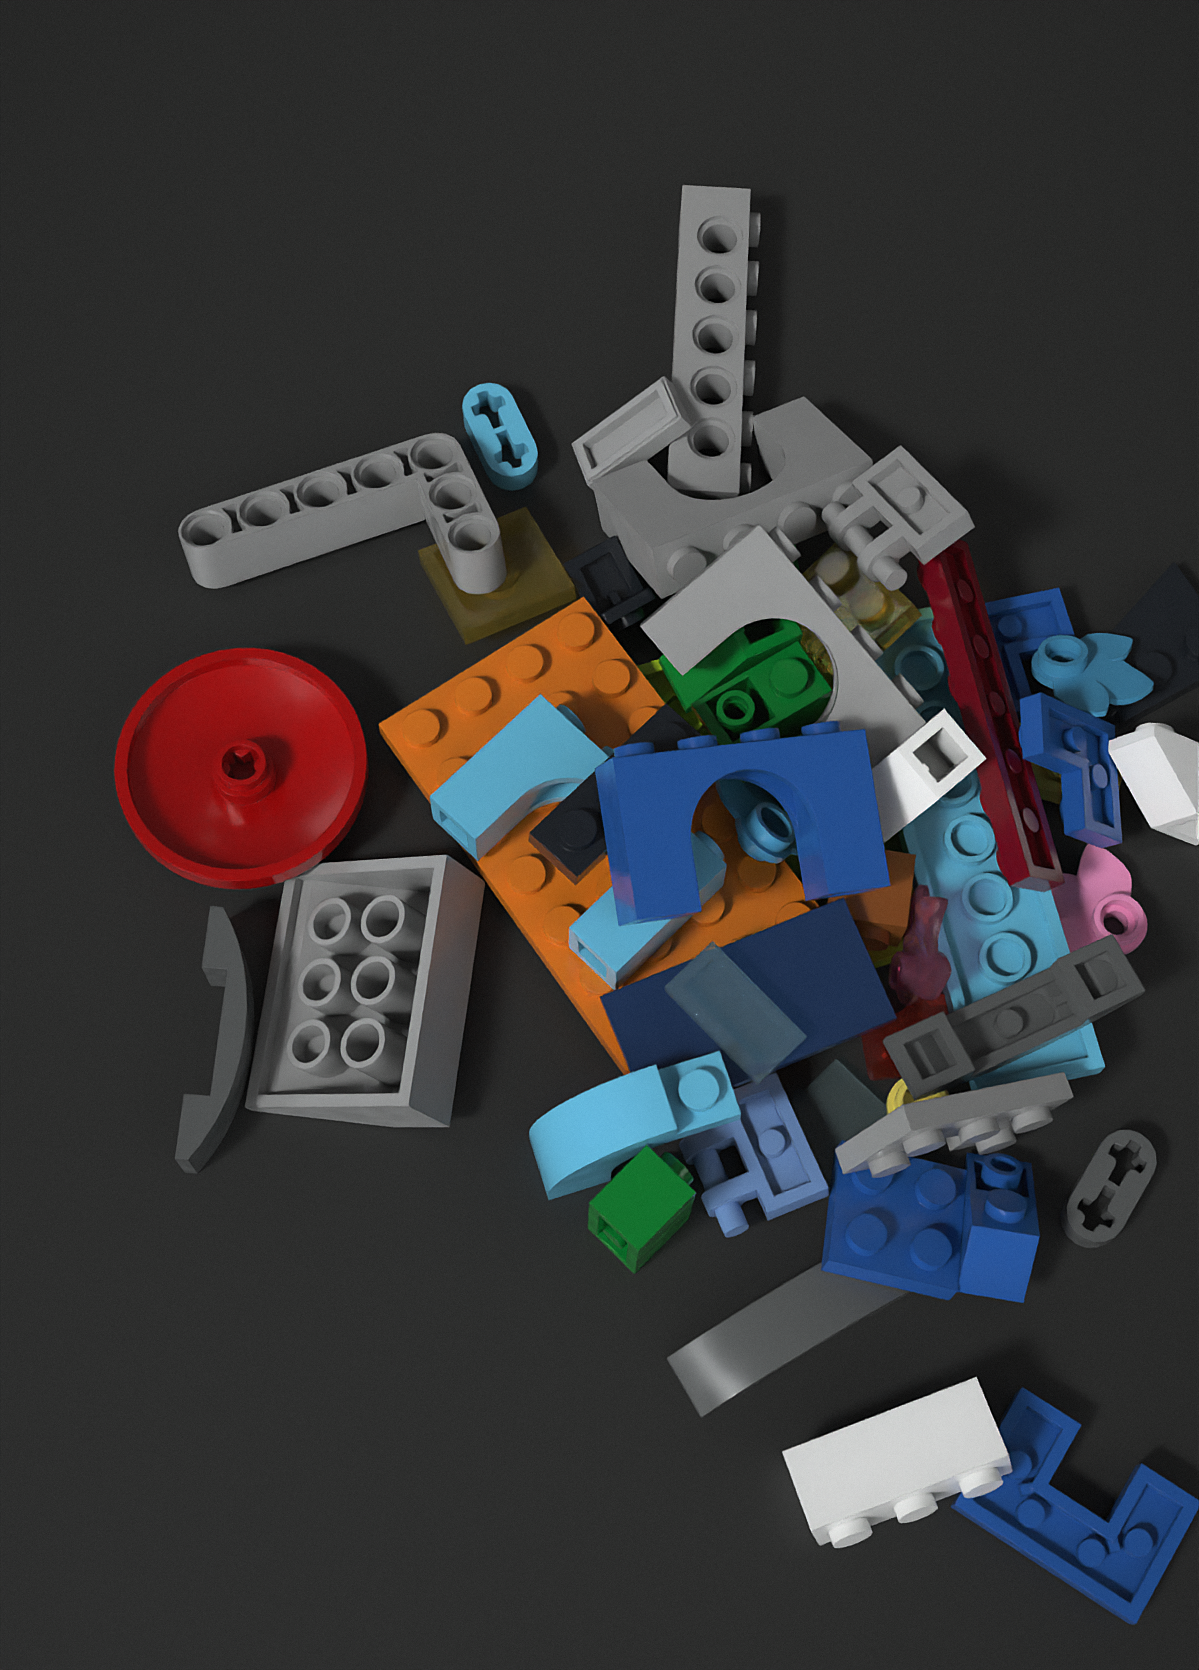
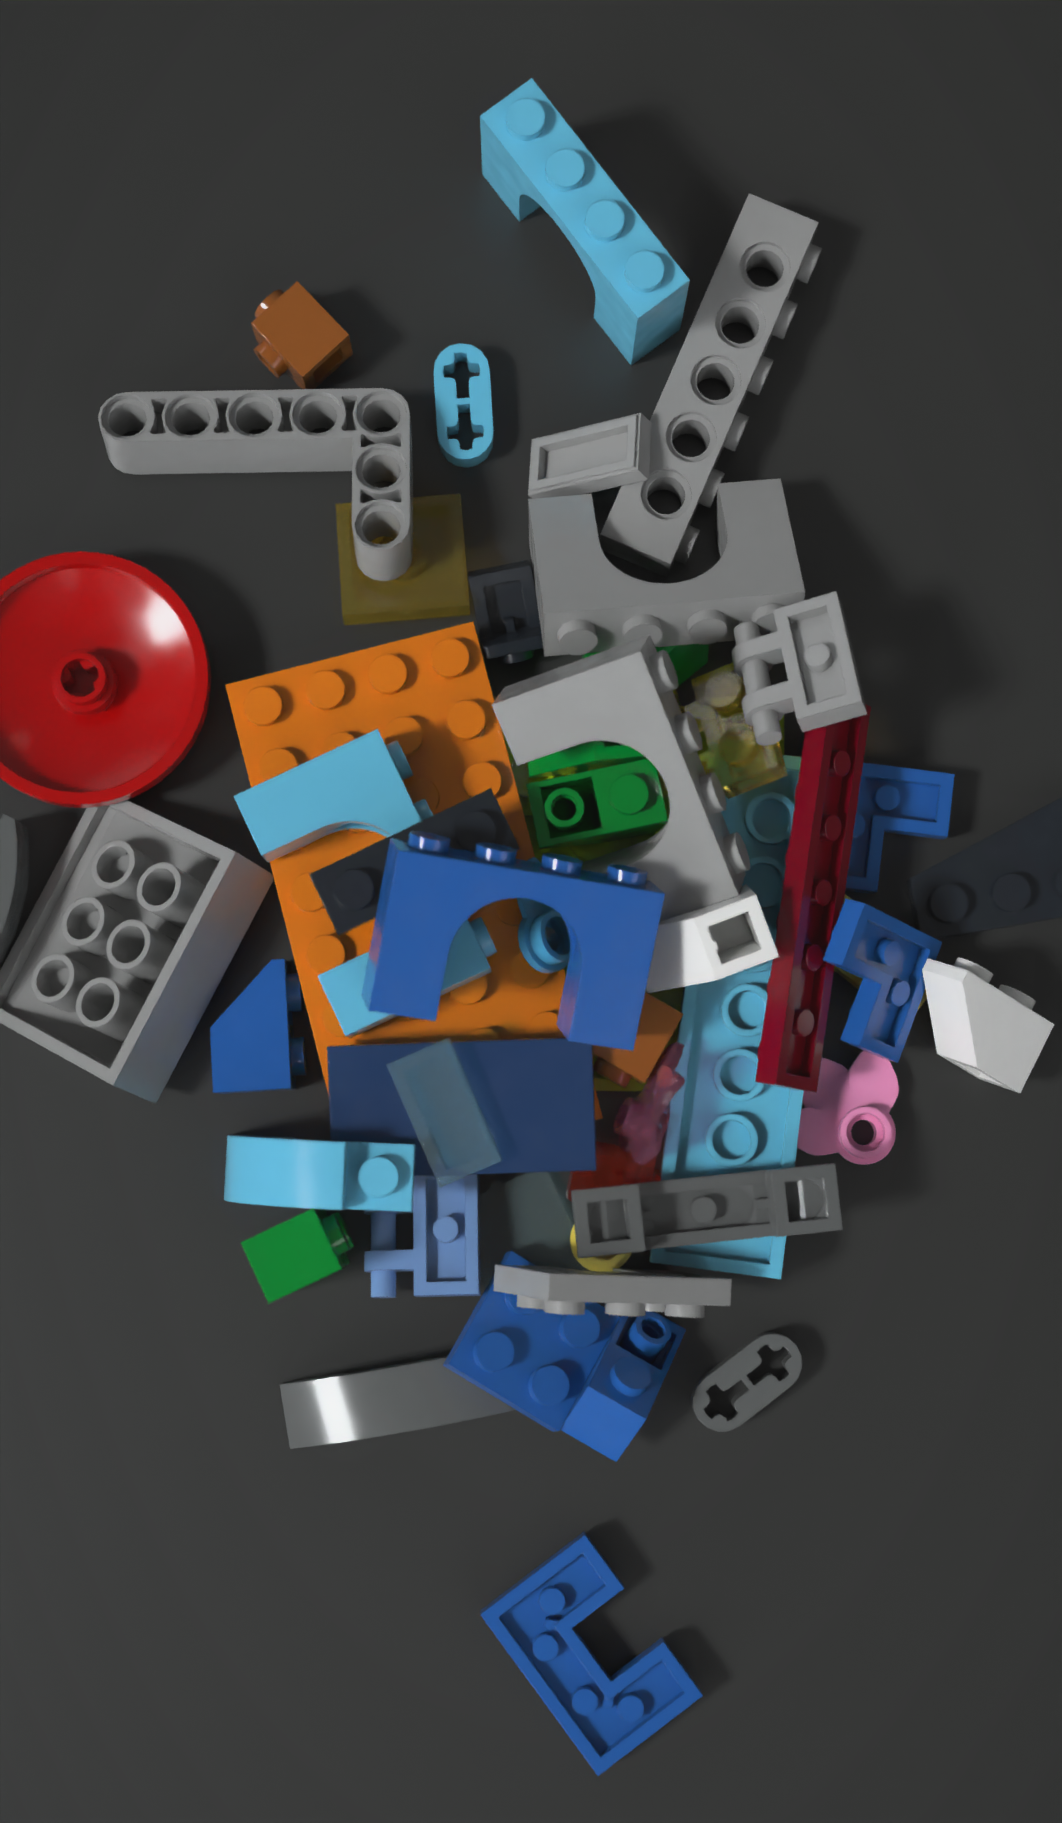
camera: 20 degrees right, 15 degrees up
(334, 422) = (299, 337): none -> dark orange brick
(496, 199) = (540, 161): none -> medium azure arch
(522, 1034) = (255, 1035): none -> blue slope
(898, 1464) = (441, 1565): white brick -> none
(1090, 671) = (949, 883): dark azure plate -> none

